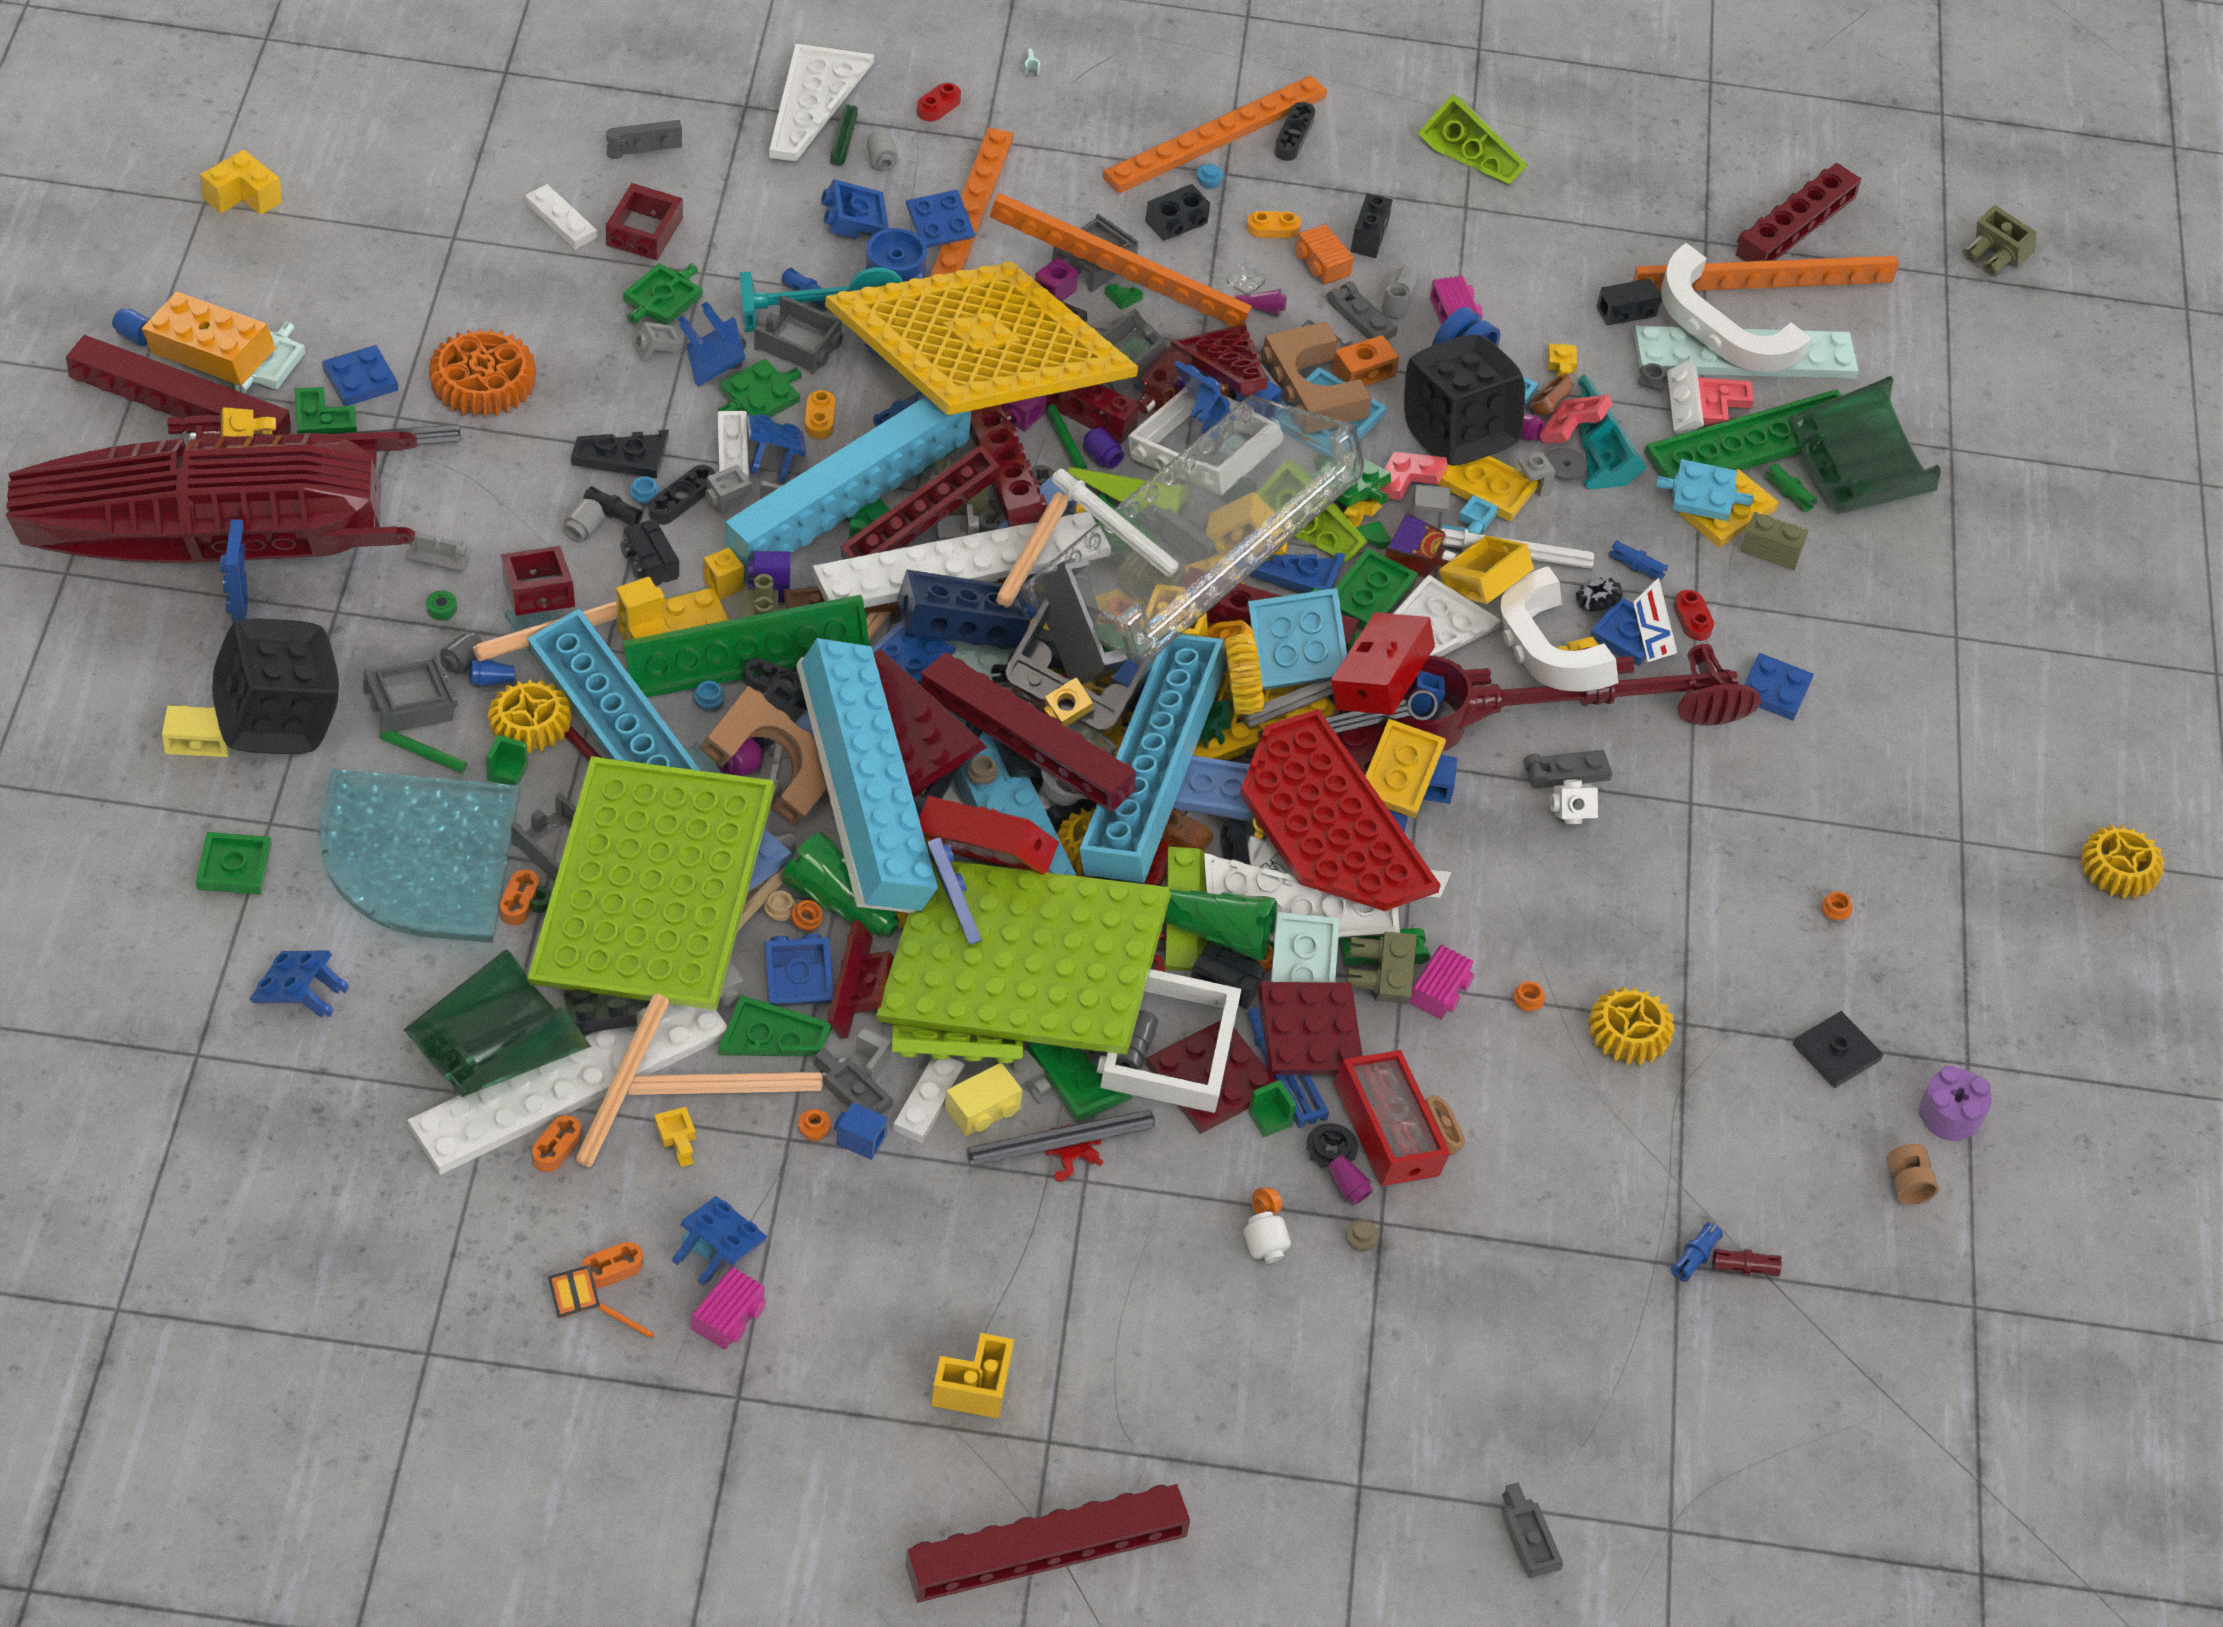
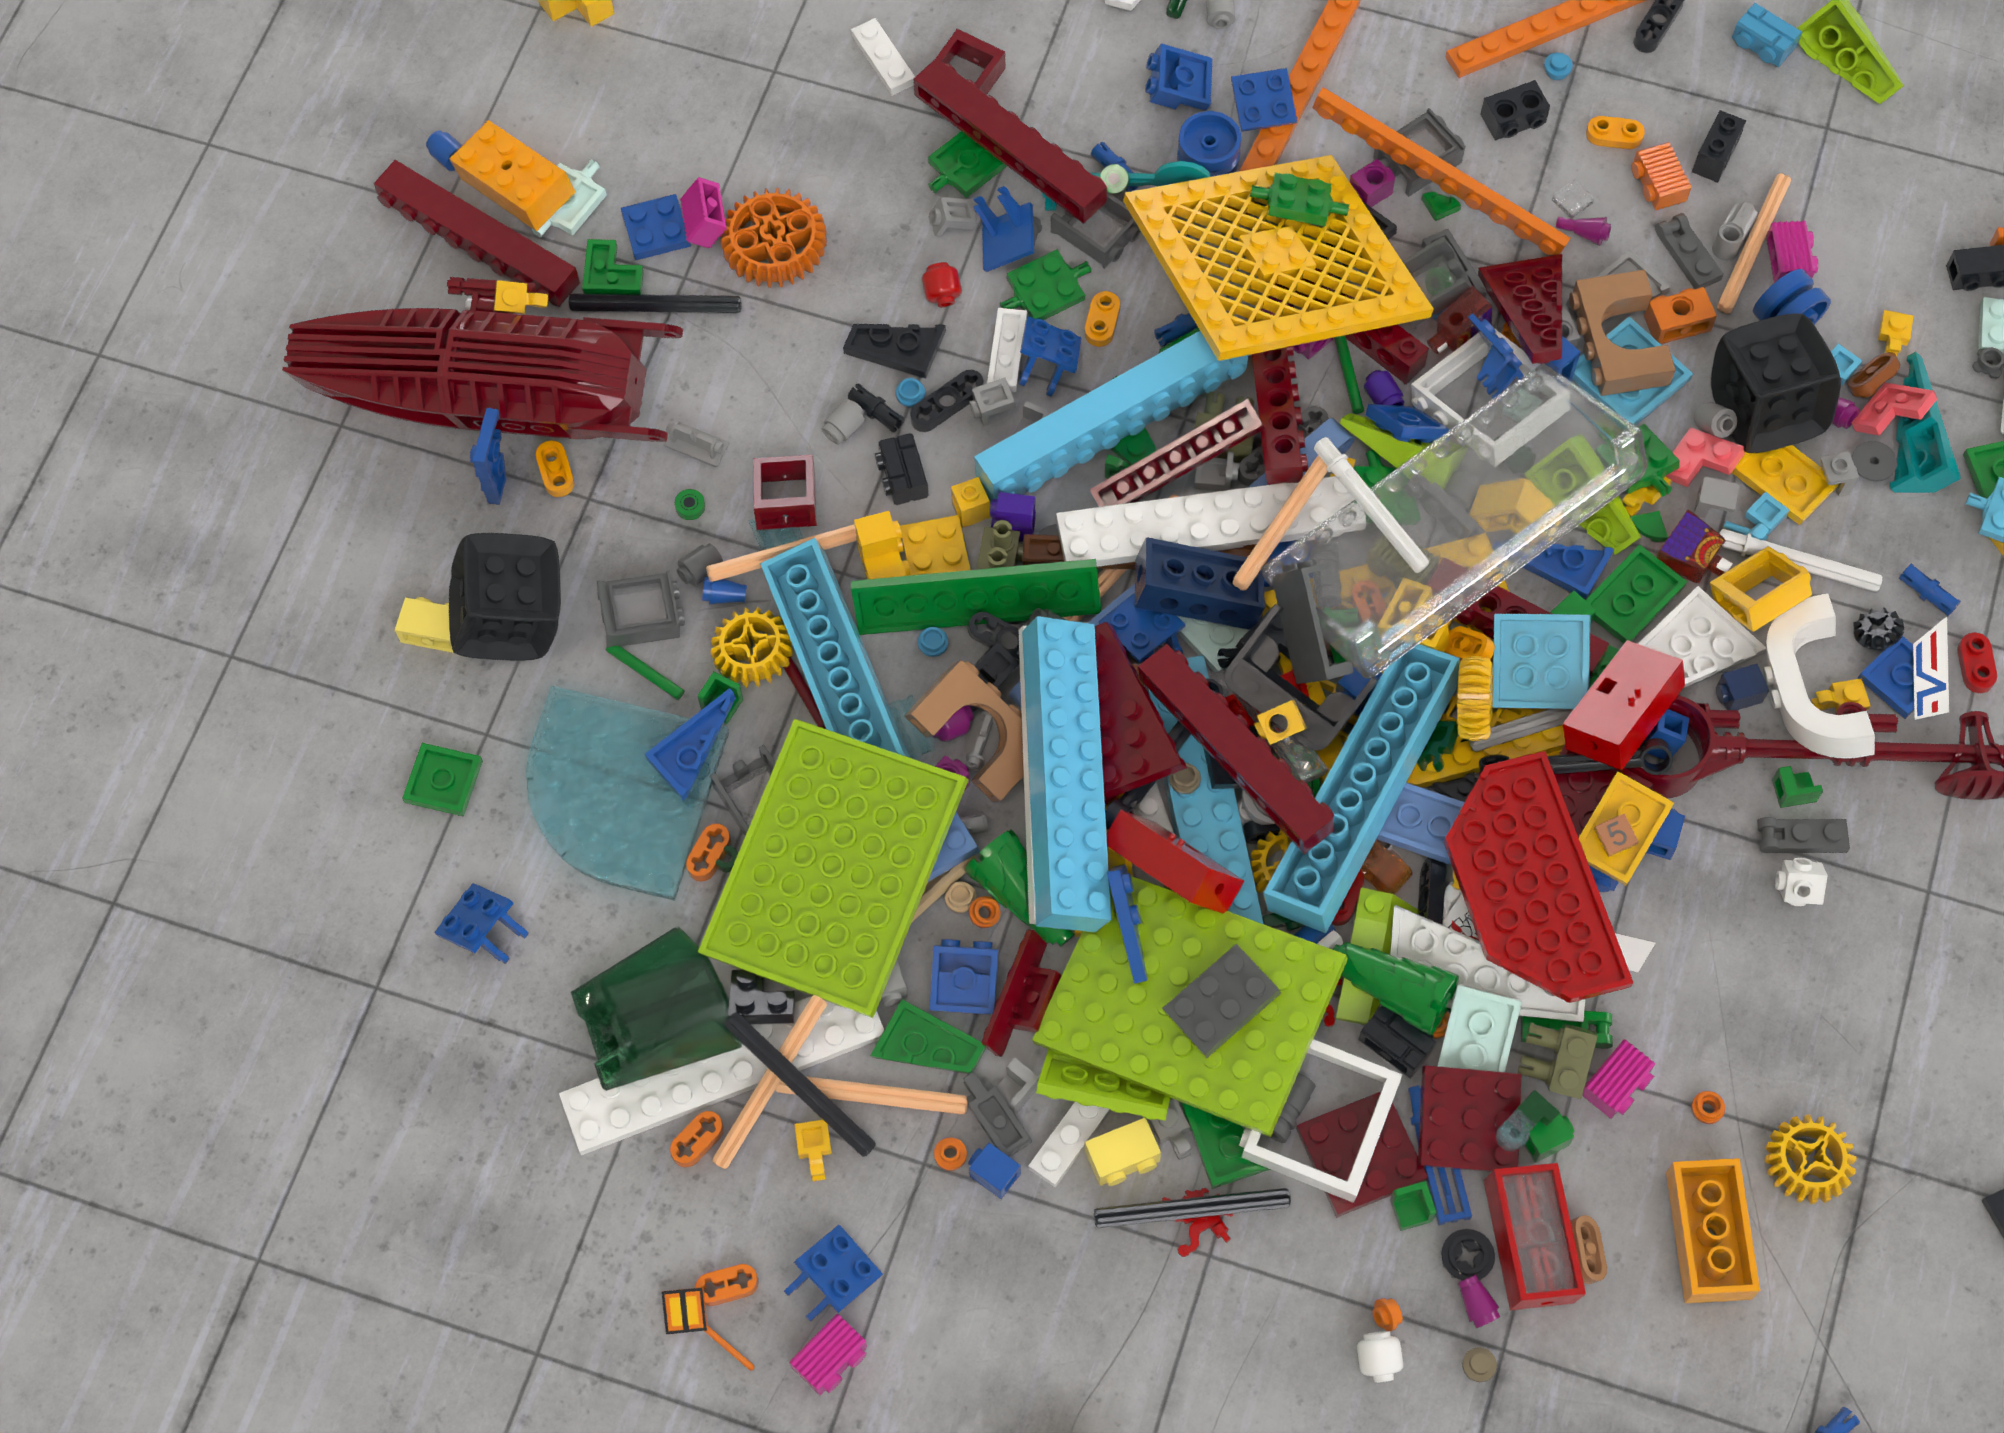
camera: 20 degrees right, 15 degrees up
(302, 591) = (556, 470): none -> light orange plate
(409, 355) = (703, 212): none -> dark pink brick
(483, 804) = (684, 751): none -> blue wing
(655, 1074) = (799, 1084): none -> black axle
(658, 396) = (941, 284): none -> red head
(704, 266) = (1010, 140): none -> dark red brick
(811, 292) = (1115, 178): none -> tile
(992, 291) = (1299, 199): none -> green plate
(1057, 943) = (1221, 1000): none -> dark grey plate
(1129, 467) = (1406, 422): none -> blue plate
(1358, 1020) = (1516, 1129): none -> leg
(1385, 1033) = (1549, 1139): none -> green brick
(1395, 135) = (1766, 35): none -> dark azure brick
(1398, 771) = (1616, 835): none -> nougat tile
(1416, 440) = (1715, 419): none -> light grey brick
(1419, 302) = (1753, 243): none -> light nougat axle
(1487, 651) = (1742, 688): none -> dark blue brick
(1551, 732) = (1795, 788): none -> green panel
(1555, 1091) = (1712, 1198): none -> light orange brick

